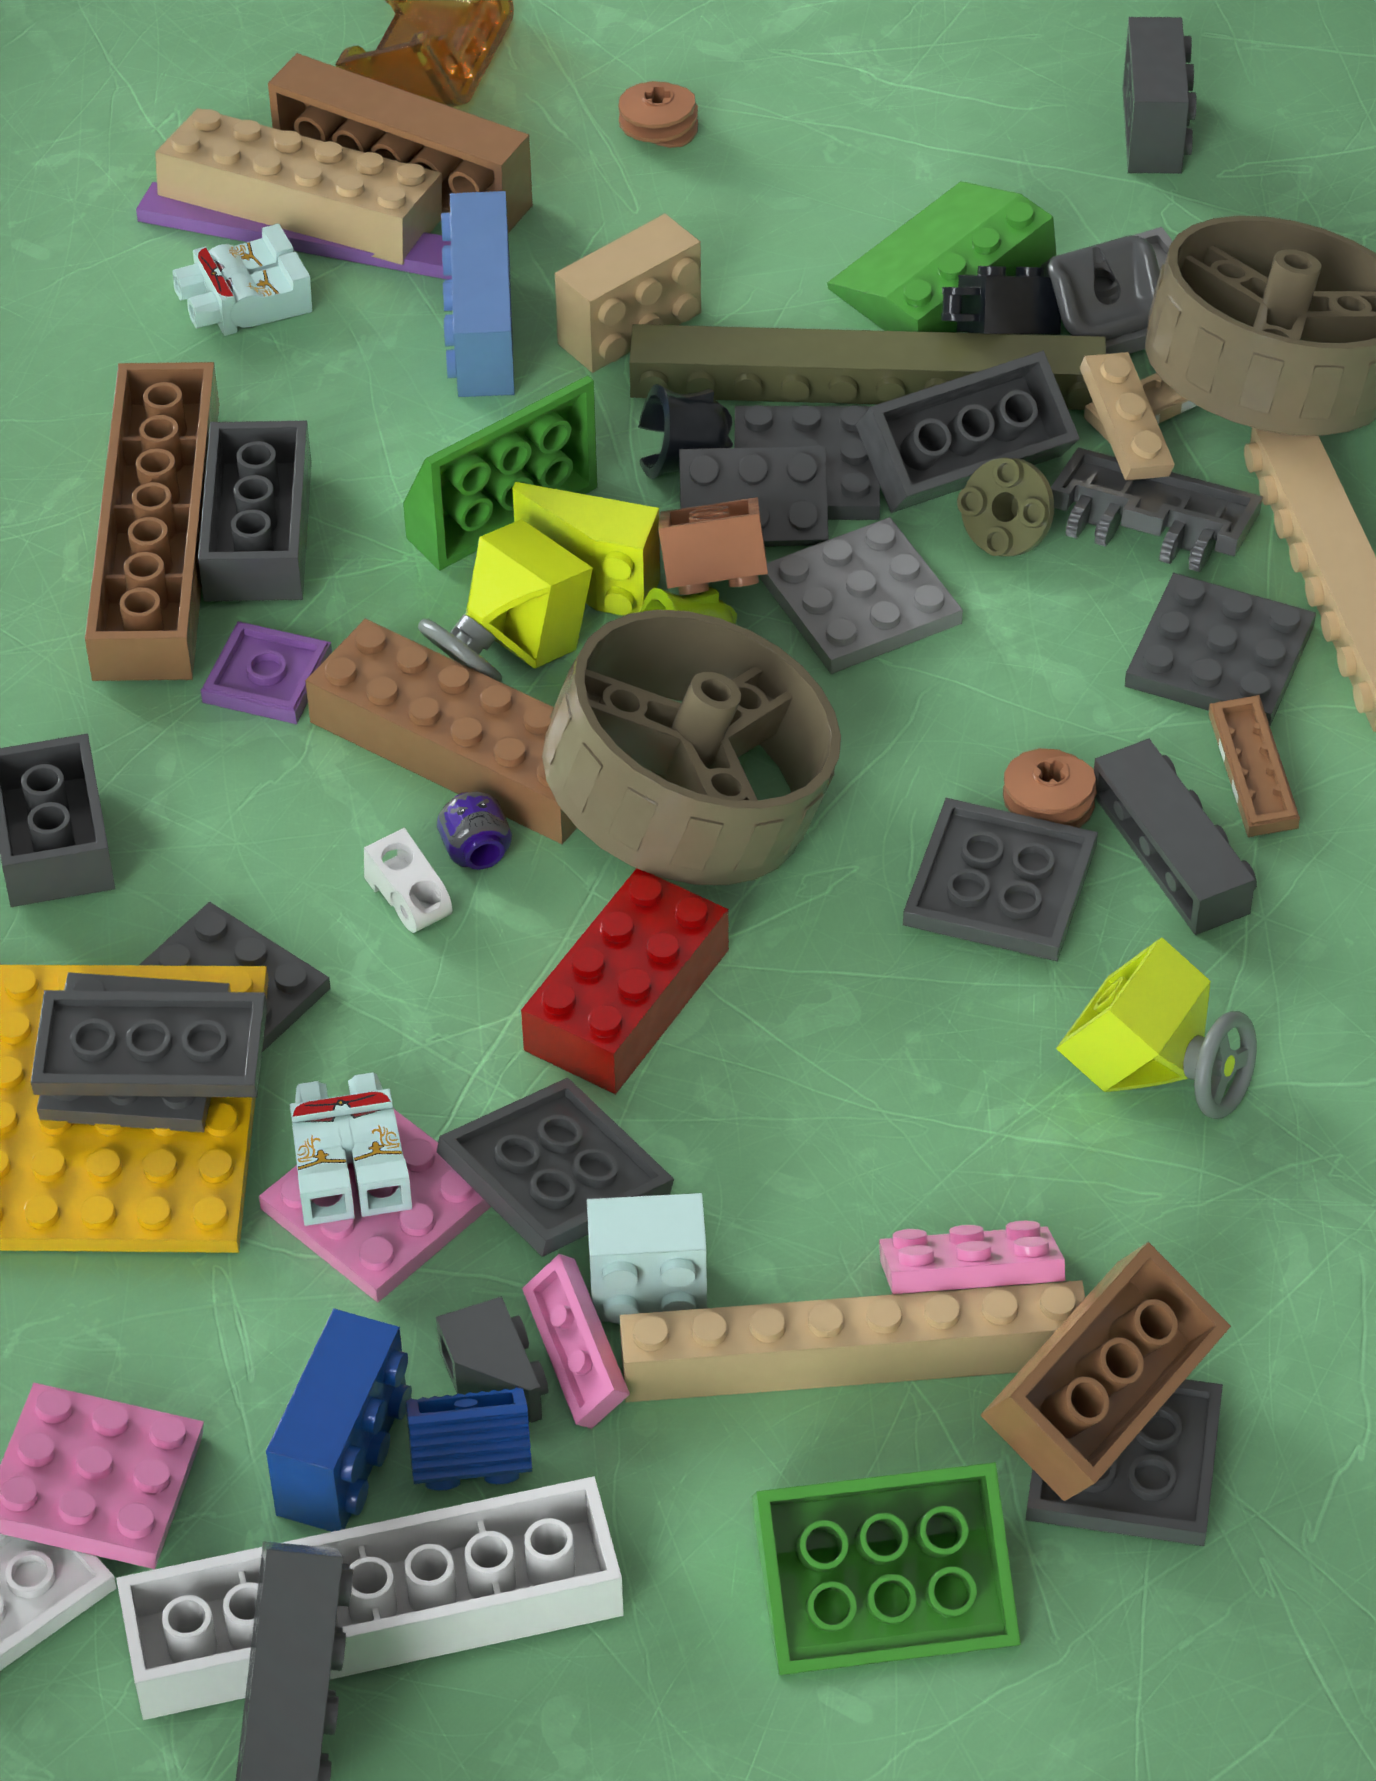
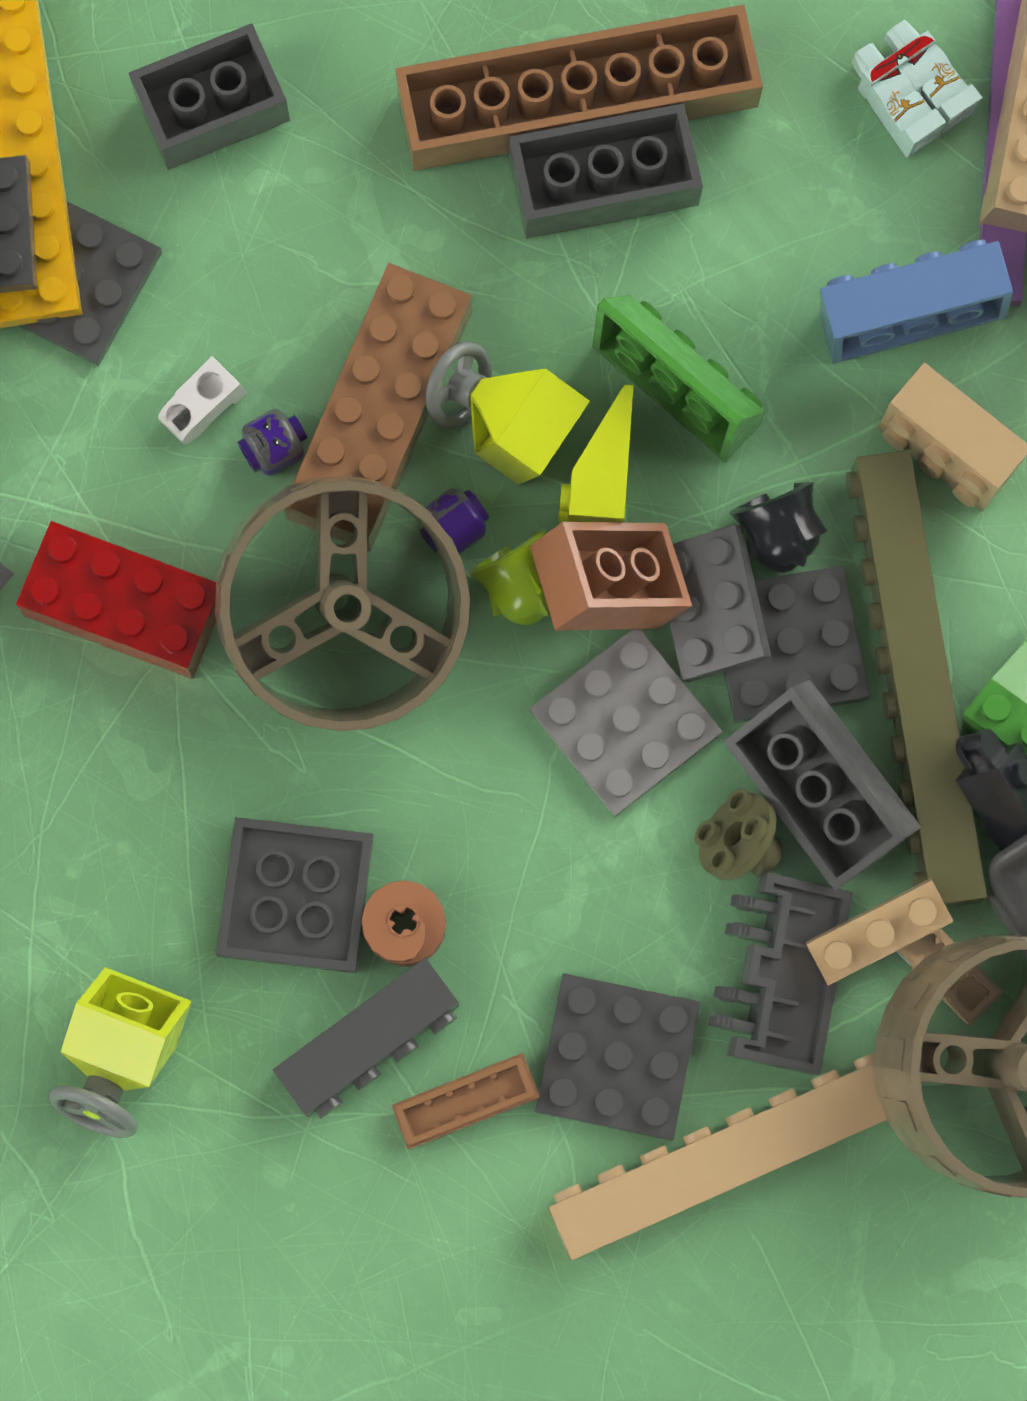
camera: 75 degrees right, 30 degrees up
(264, 672) = (435, 229): medium lavender tile -> none

